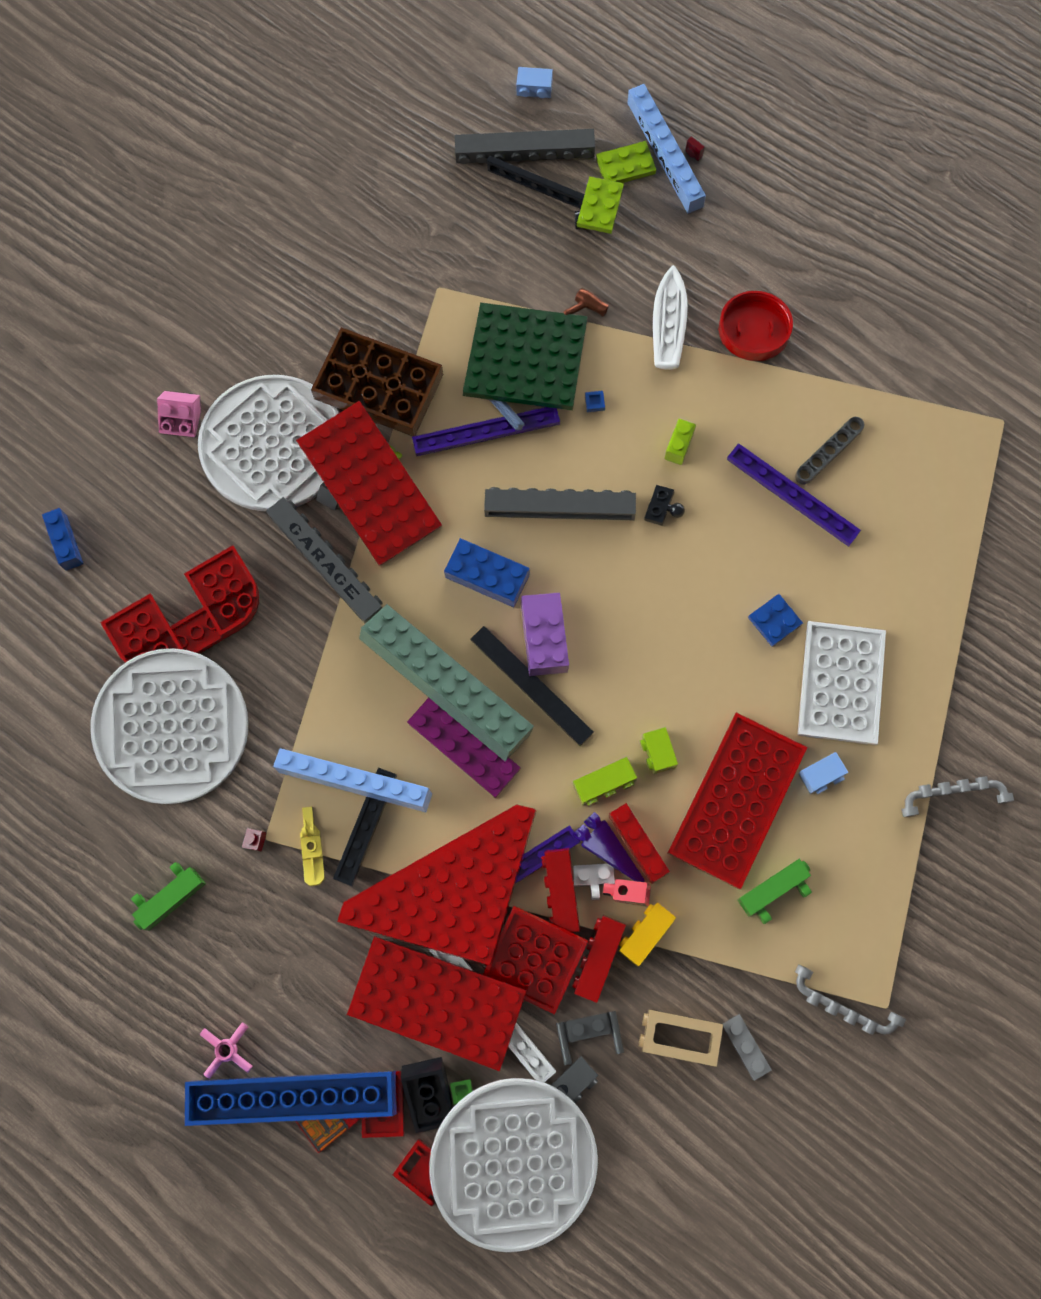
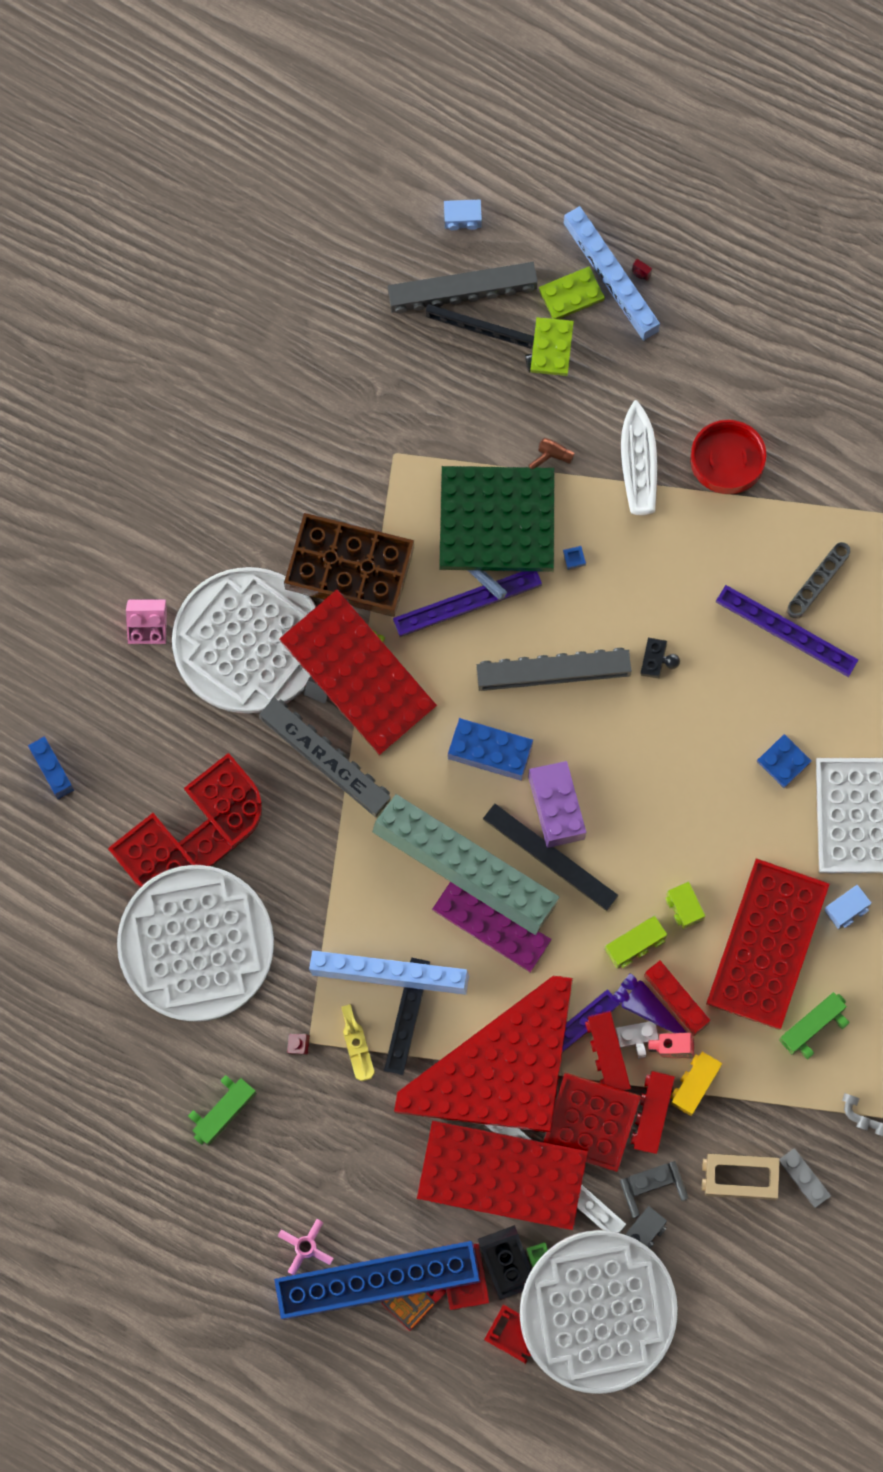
camera: 10 degrees left, 0 degrees up
(680, 441) = (666, 590): lime brick -> none

